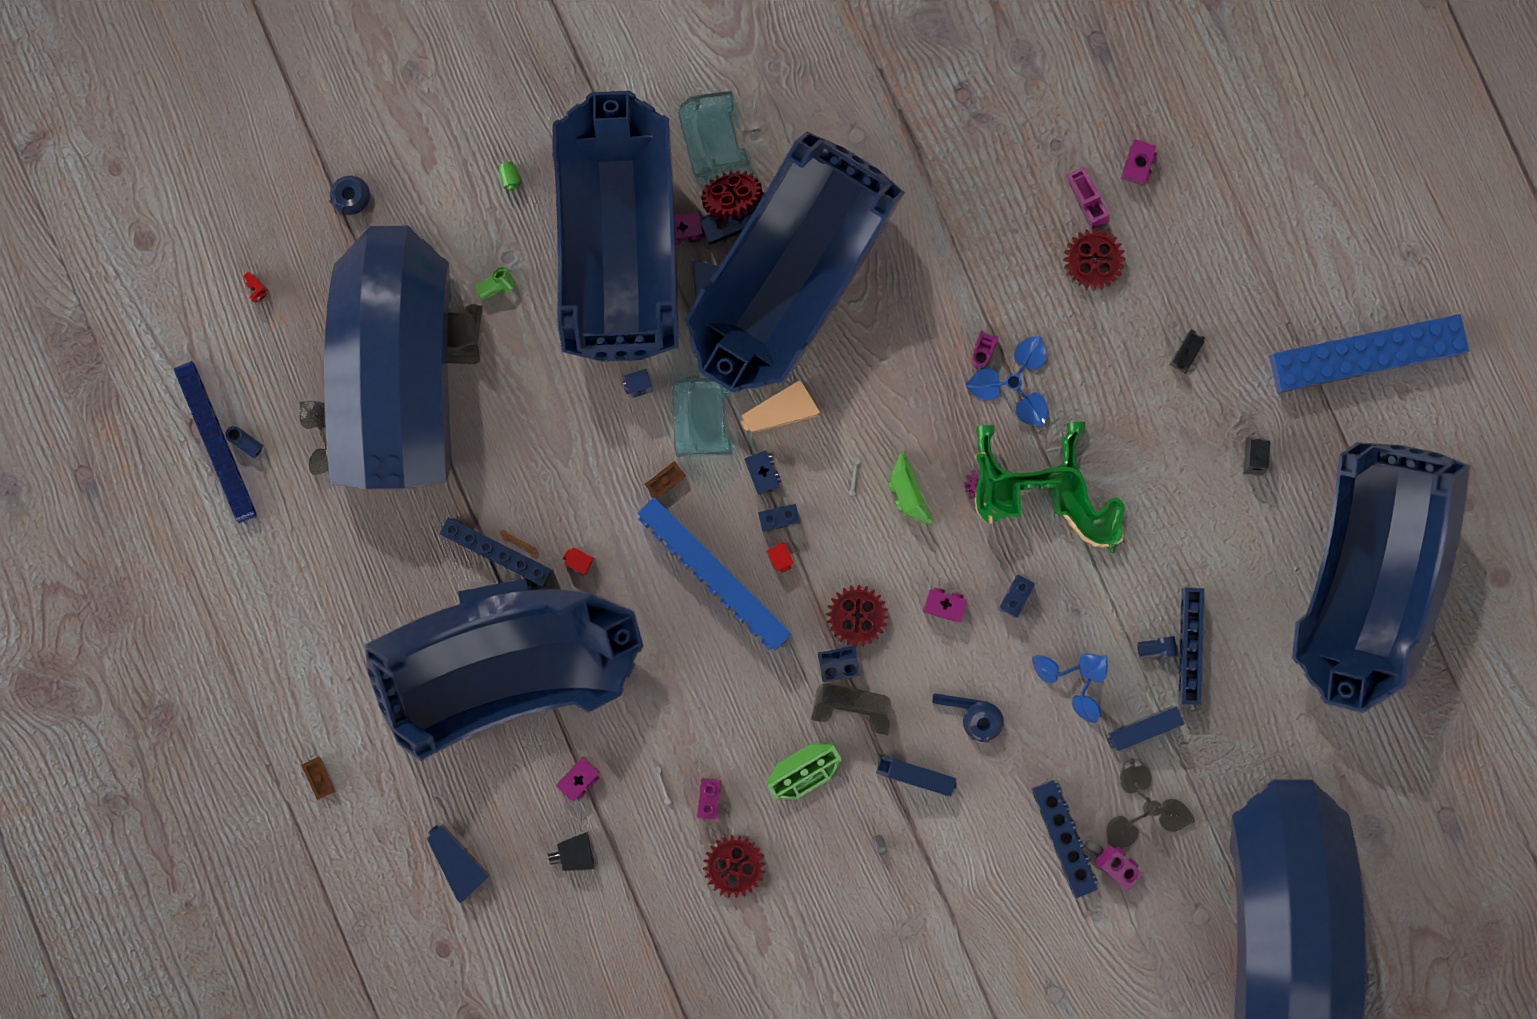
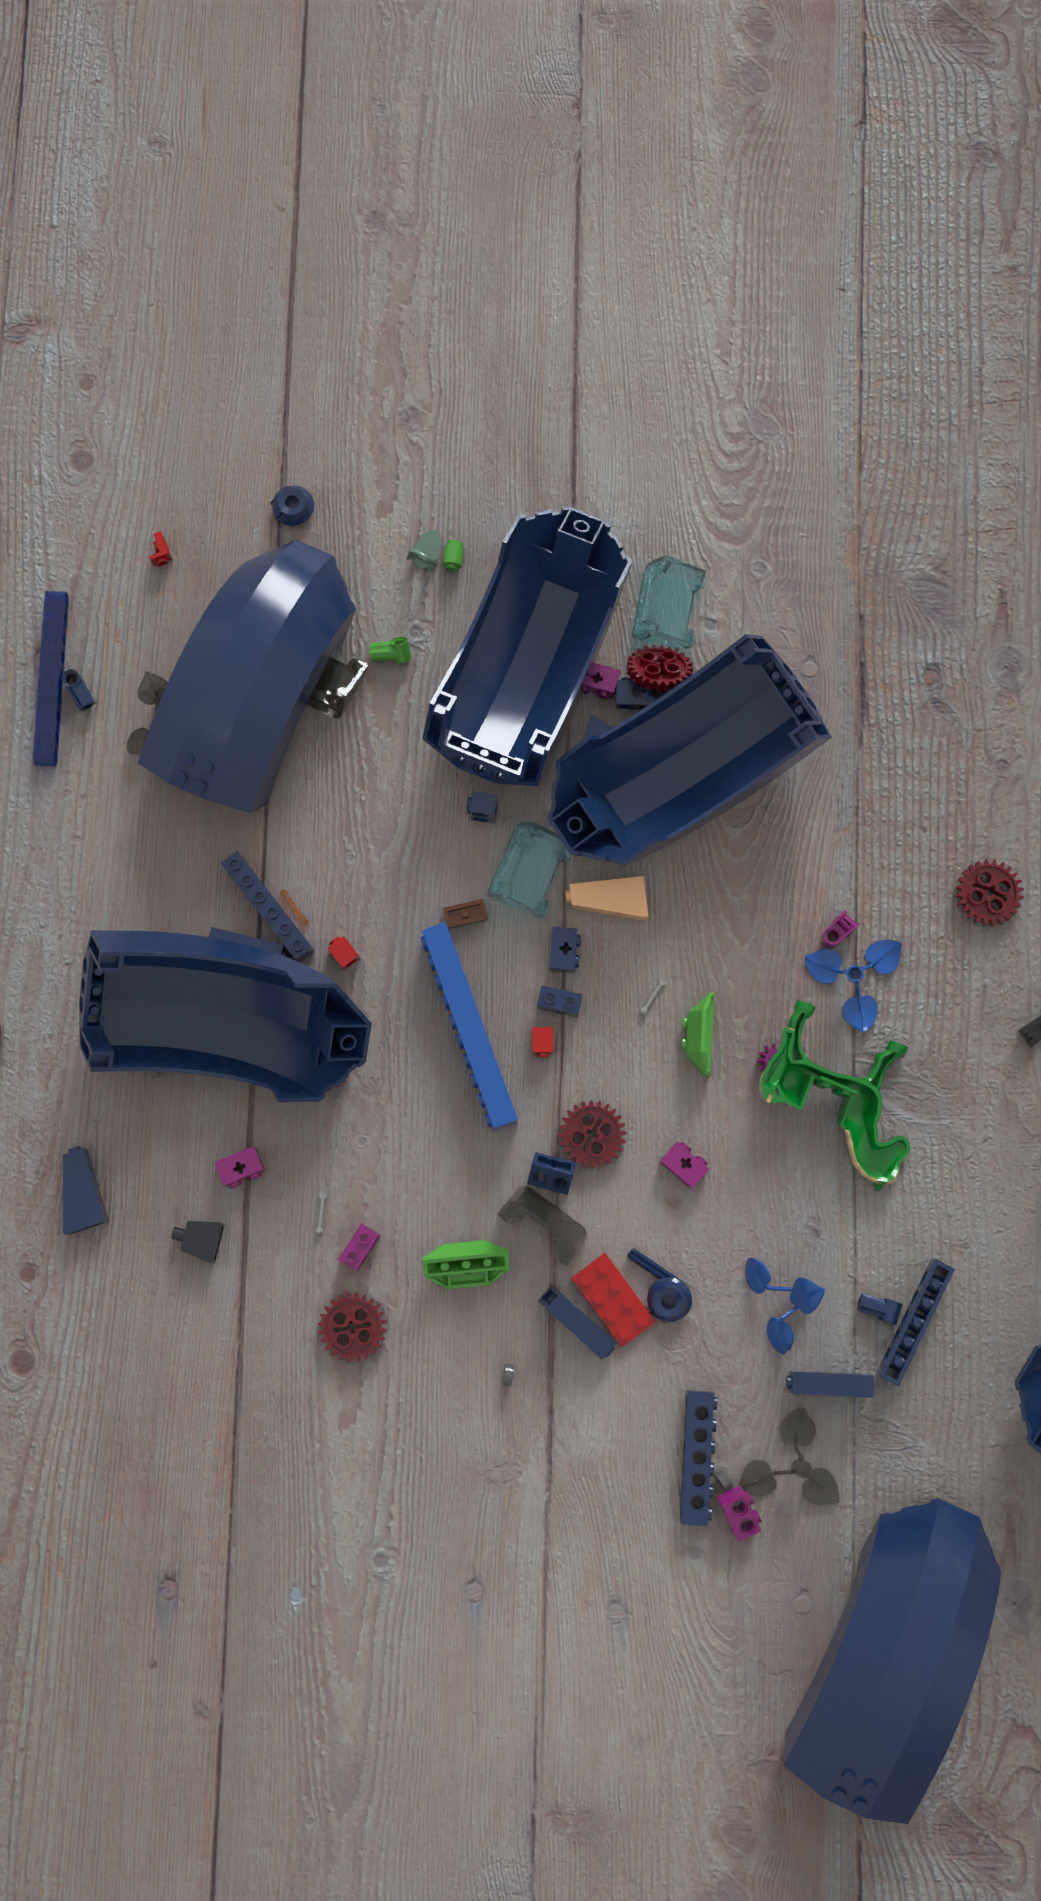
camera: 25 degrees right, 5 degrees down
(484, 181) = (426, 550): none -> sand green piece
(937, 743) = (613, 1300): none -> red plate
(1016, 596) = (760, 1189): dark blue brick -> none
(1088, 198) = (1010, 831): magenta slope -> none

